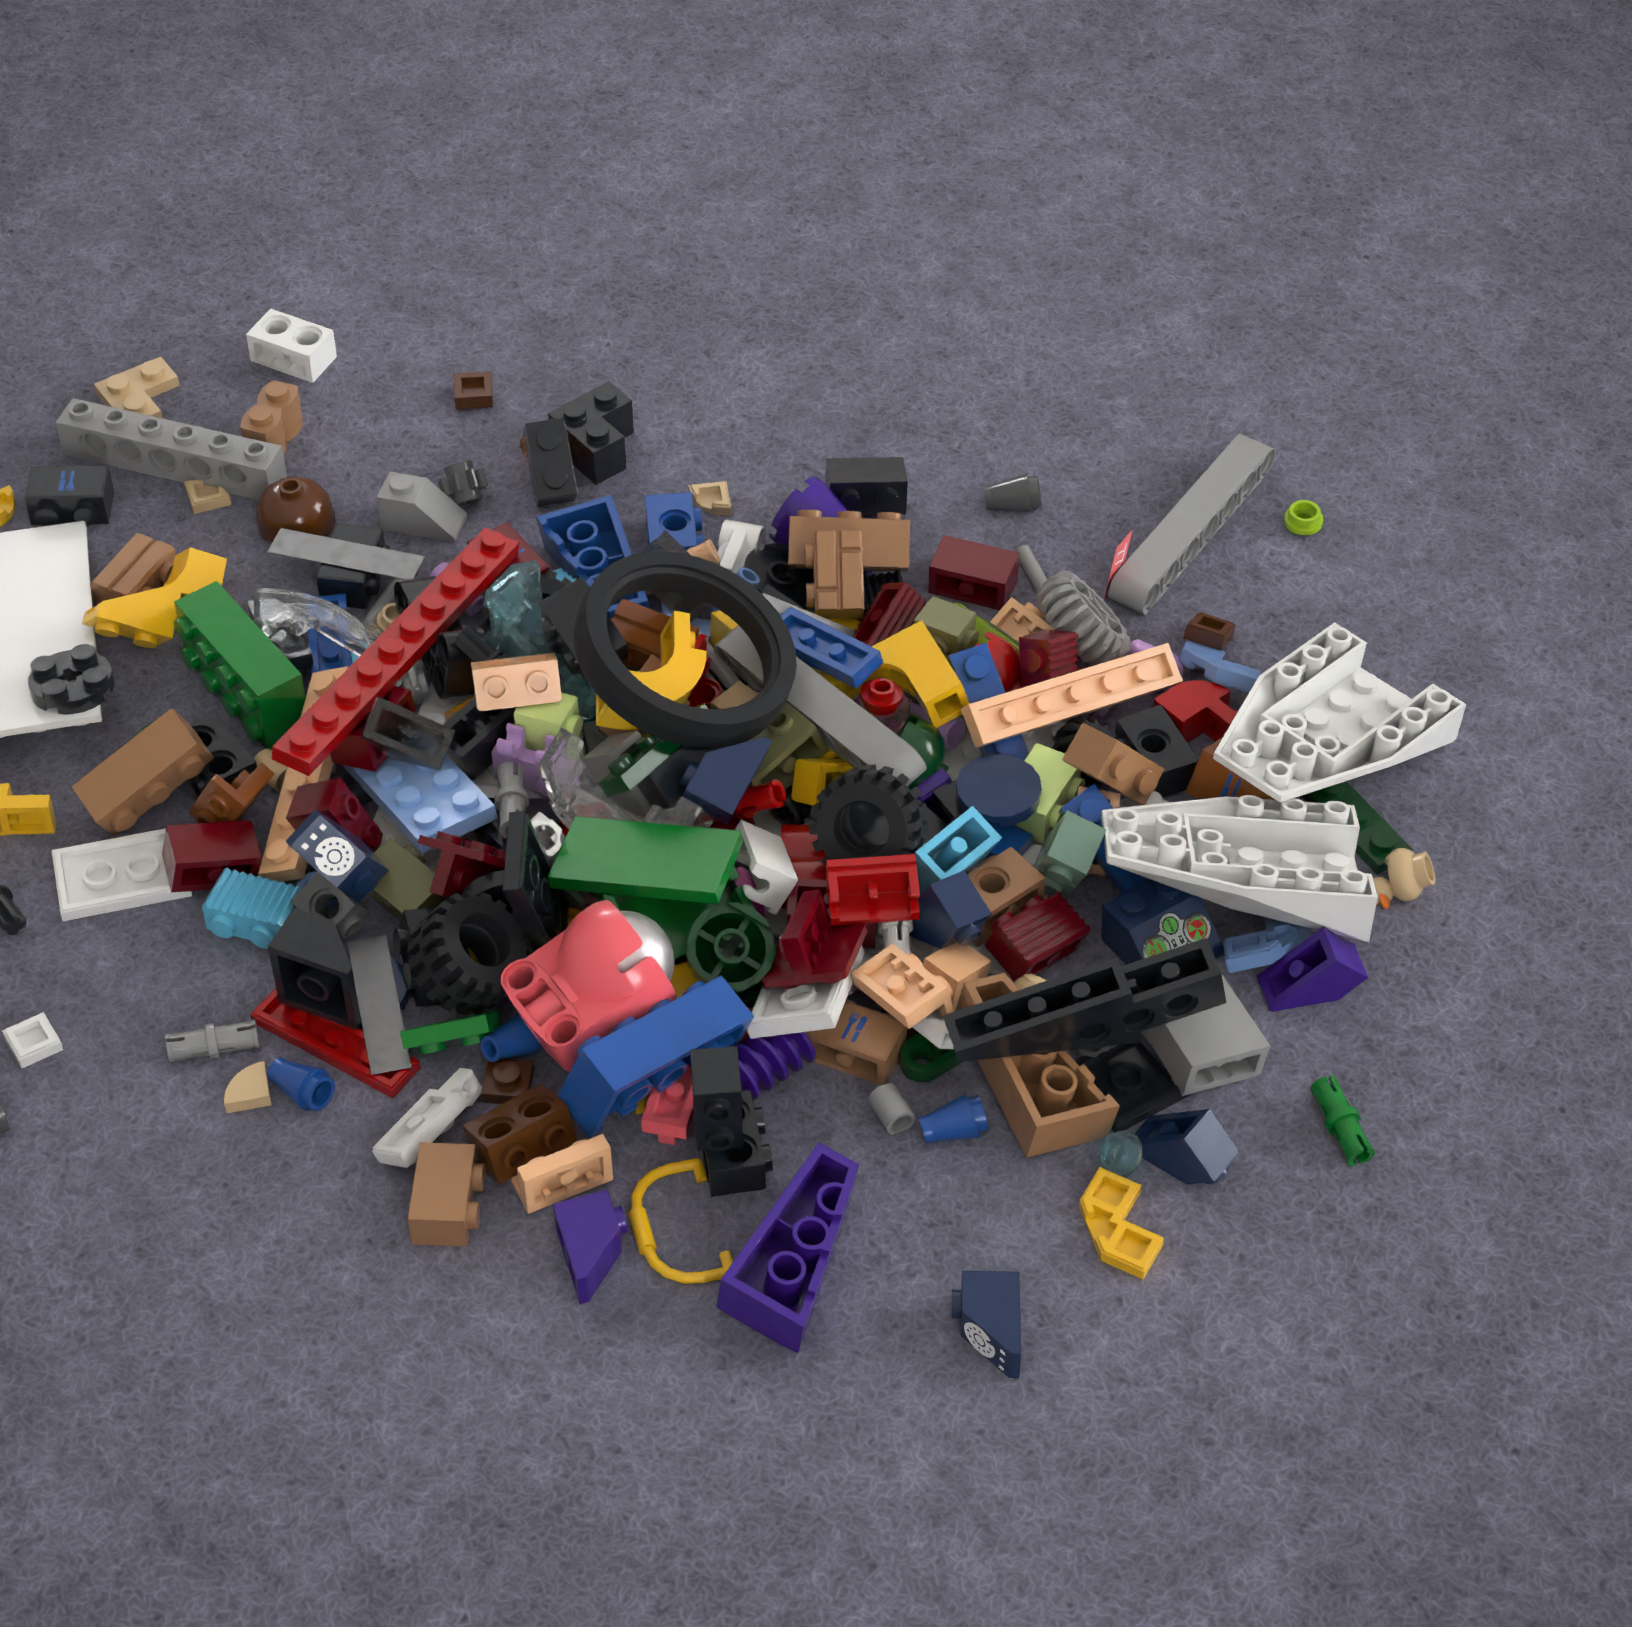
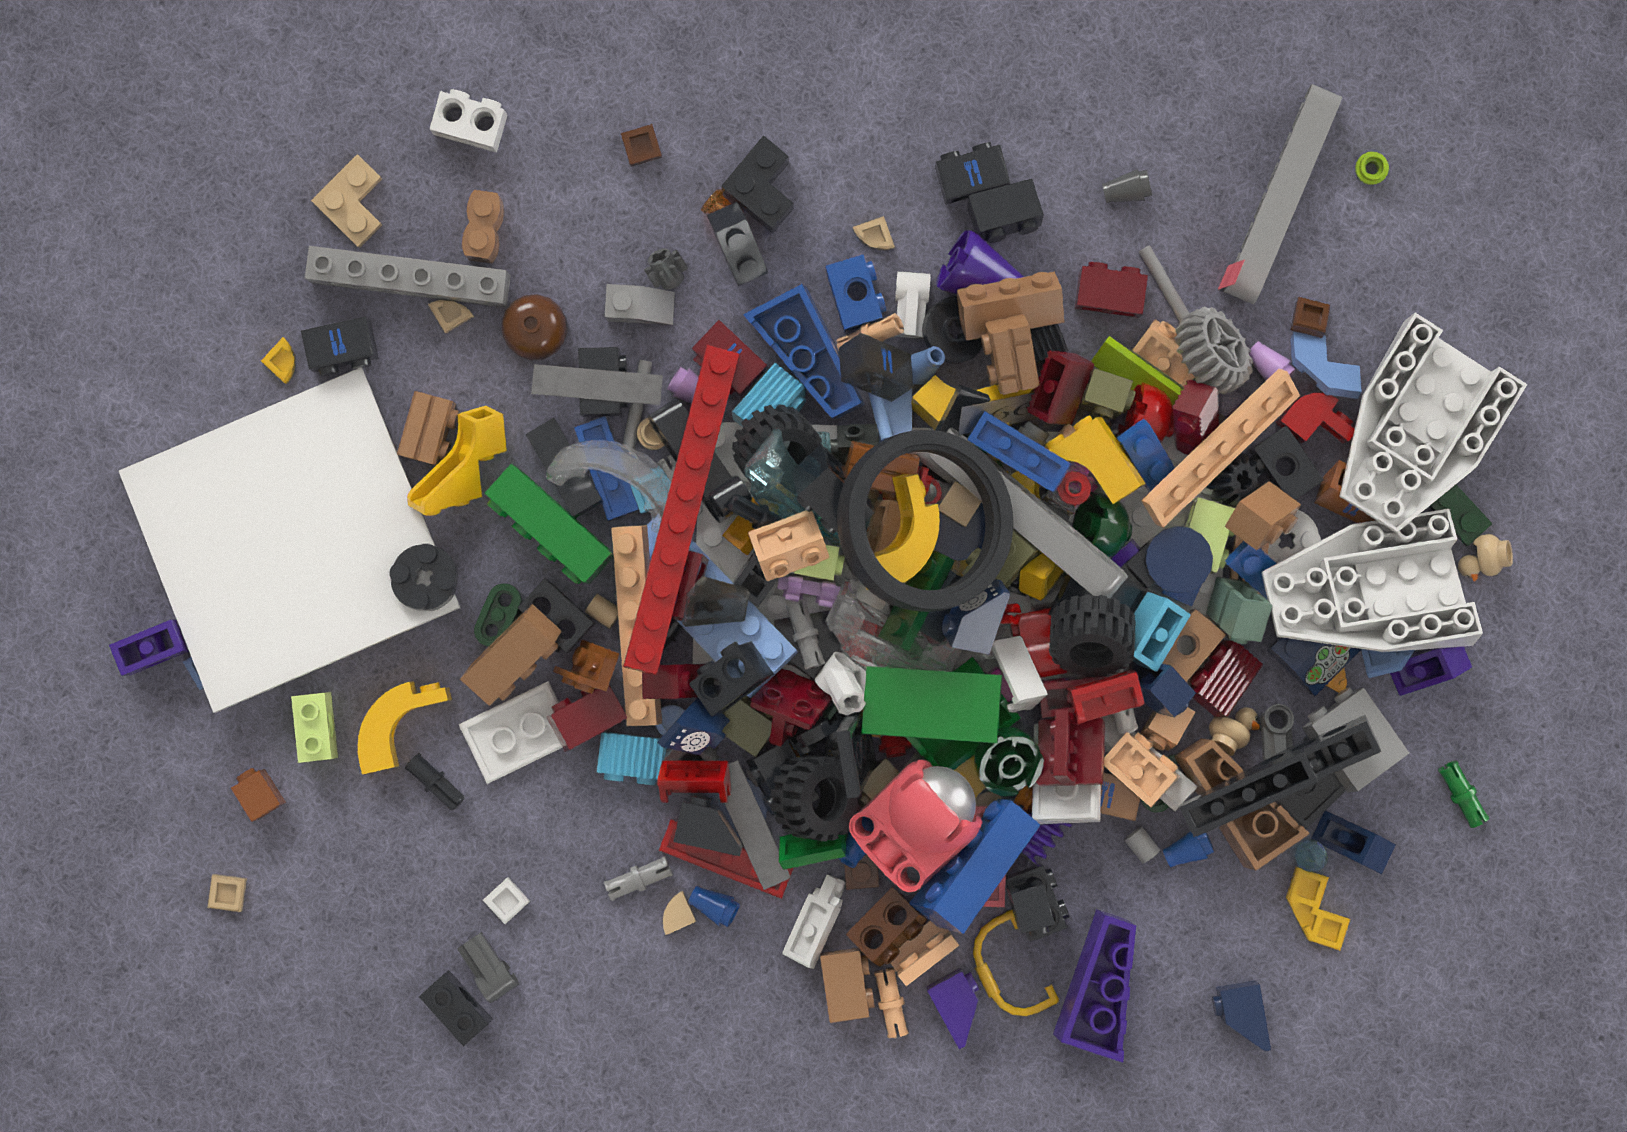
camera: 10 degrees left, 40 degrees up
(349, 918) = (694, 778): none -> red hinge
(402, 805) = (733, 682): none -> black brick
(501, 1232) = (891, 1003): none -> light nougat pin
(819, 445) = (971, 172): none -> black brick

